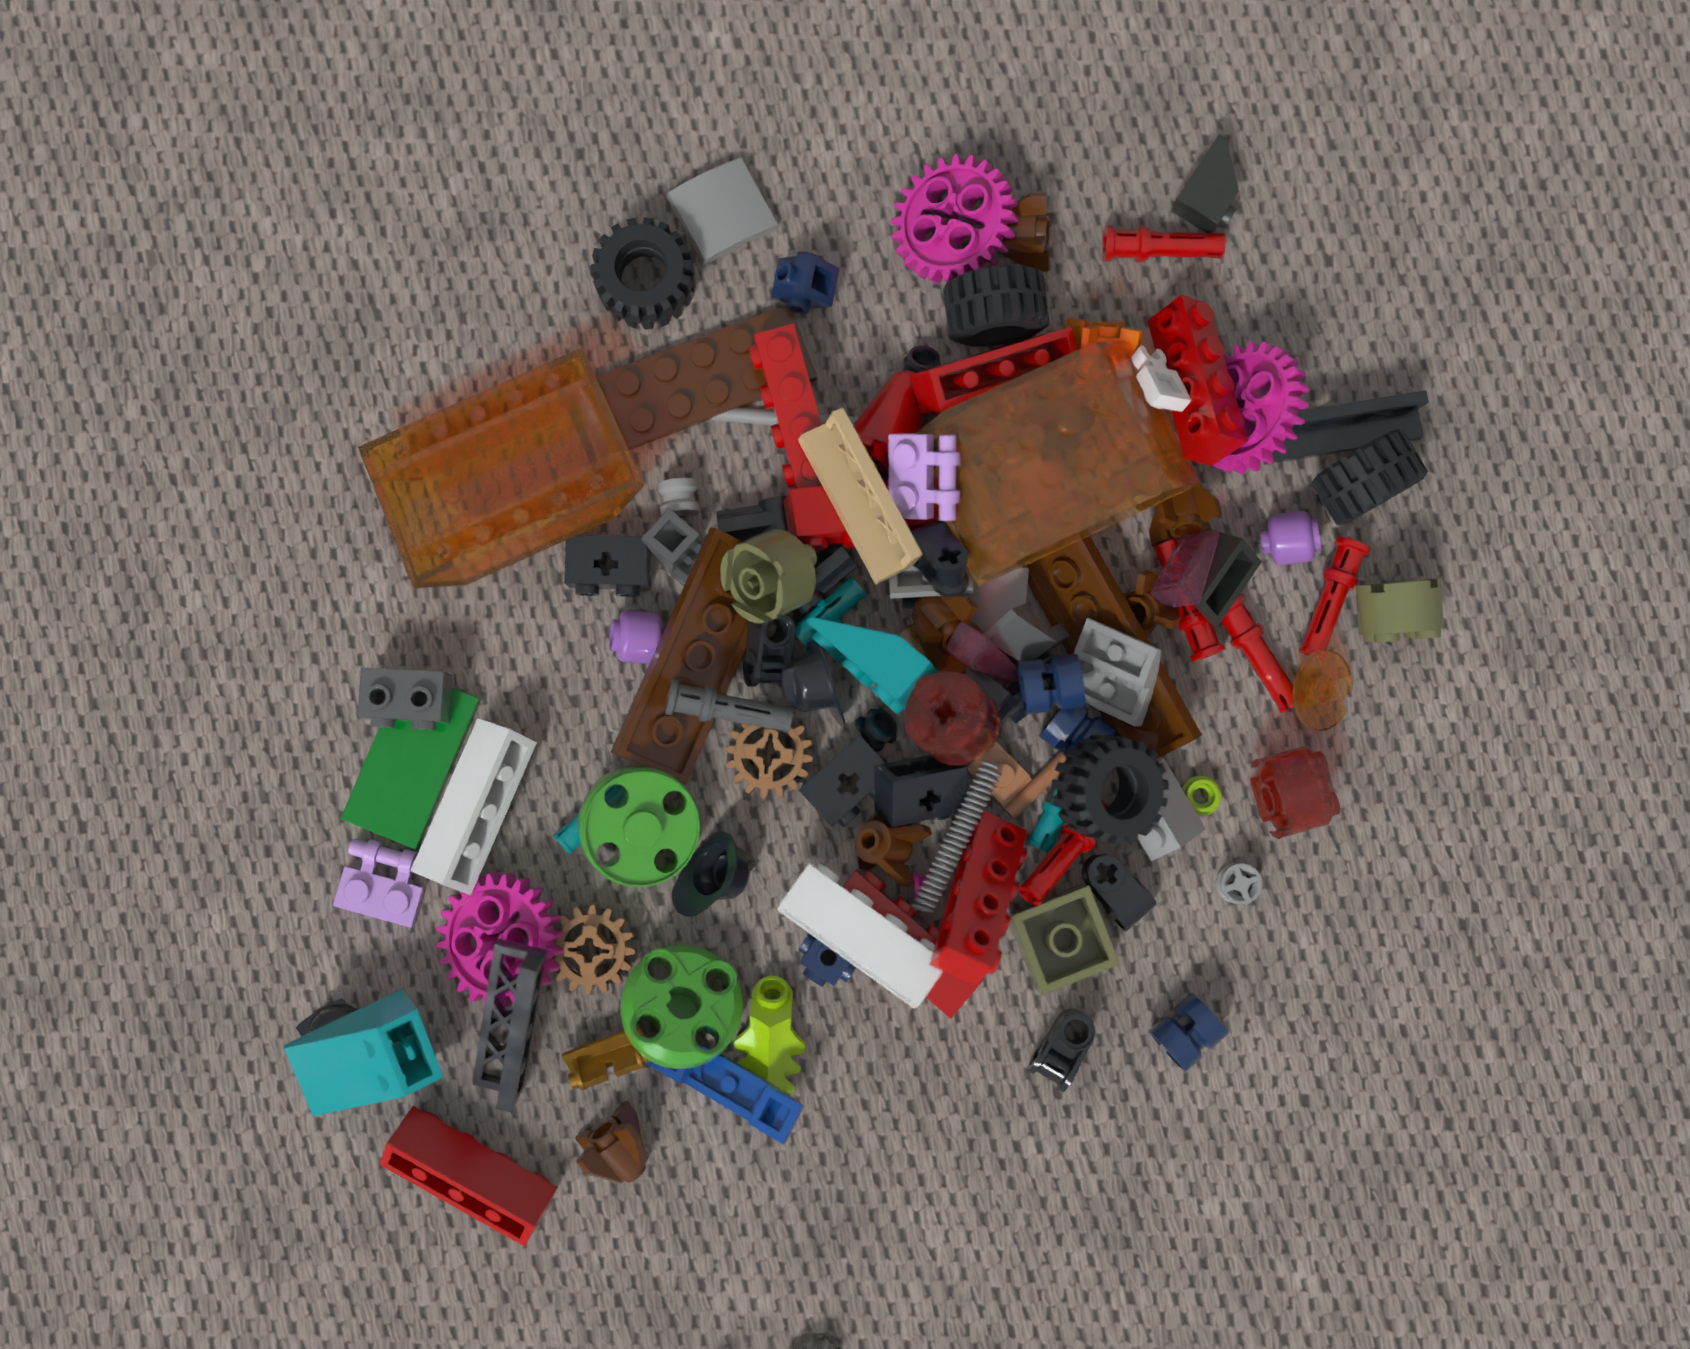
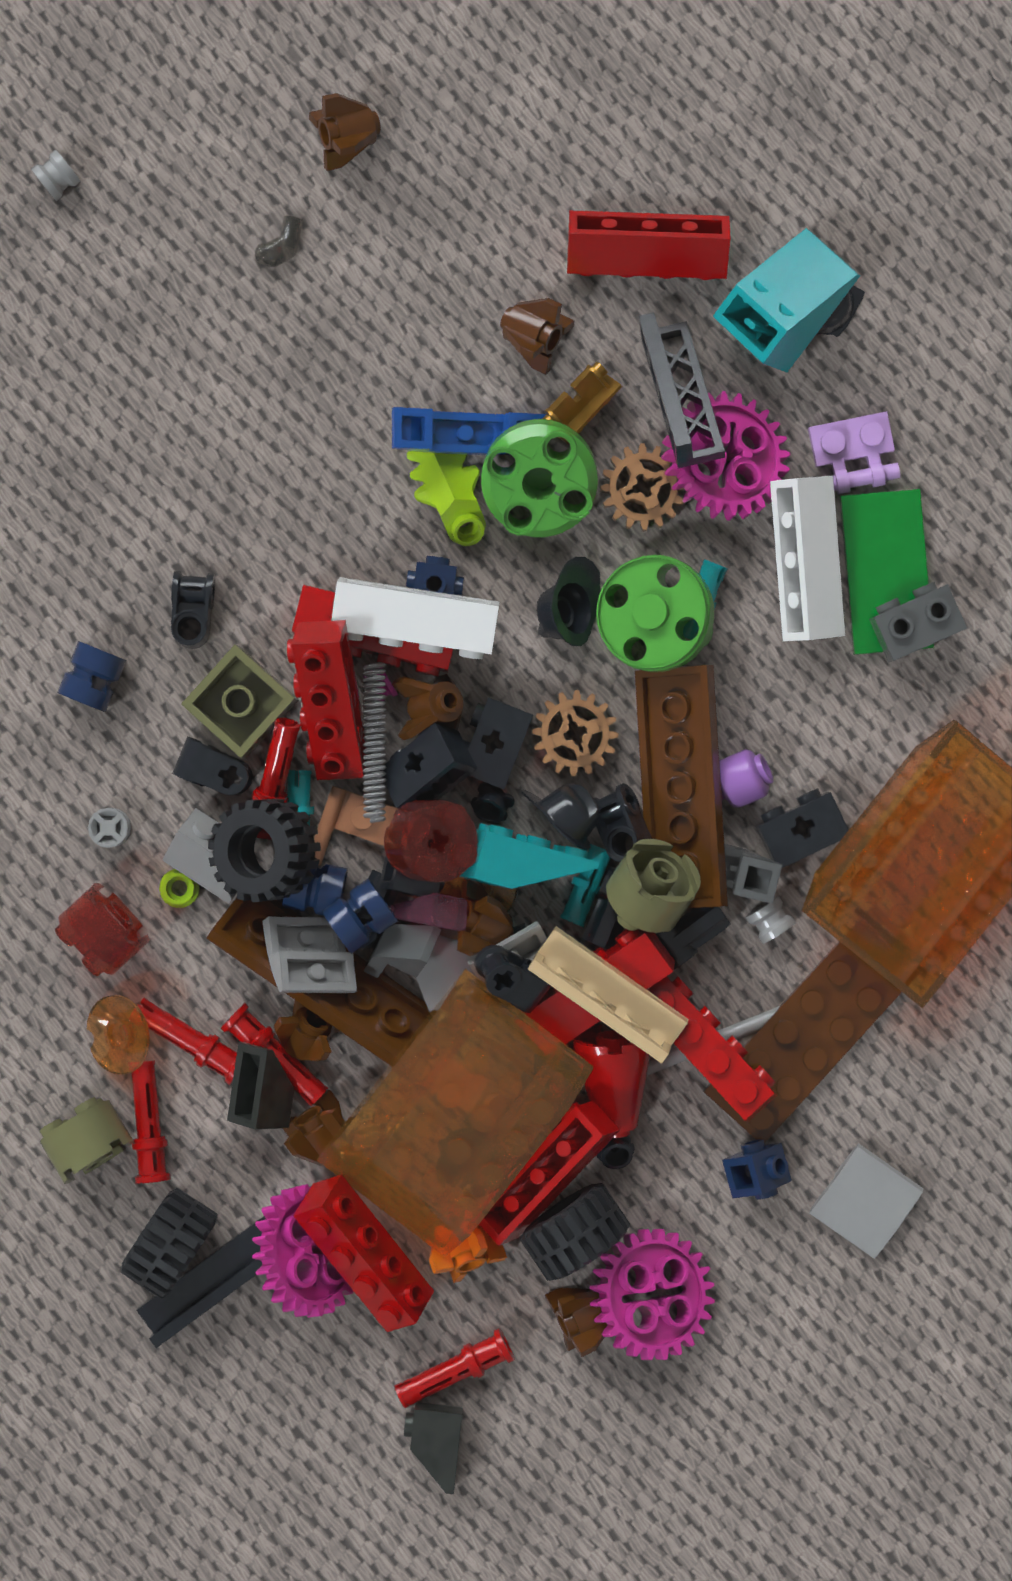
camera: 155 degrees right, 5 degrees up
(636, 242) = (930, 1129): black tyre -> none
(708, 704) = (649, 750): dark grey pin -> none
(912, 475) = (570, 1035): lavender plate -> none
(1160, 385) = (395, 1228): white plate -> none
(1184, 577) = (290, 1077): clear pink slope -> none
(1291, 538) = (210, 1157): medium lavender head -> none

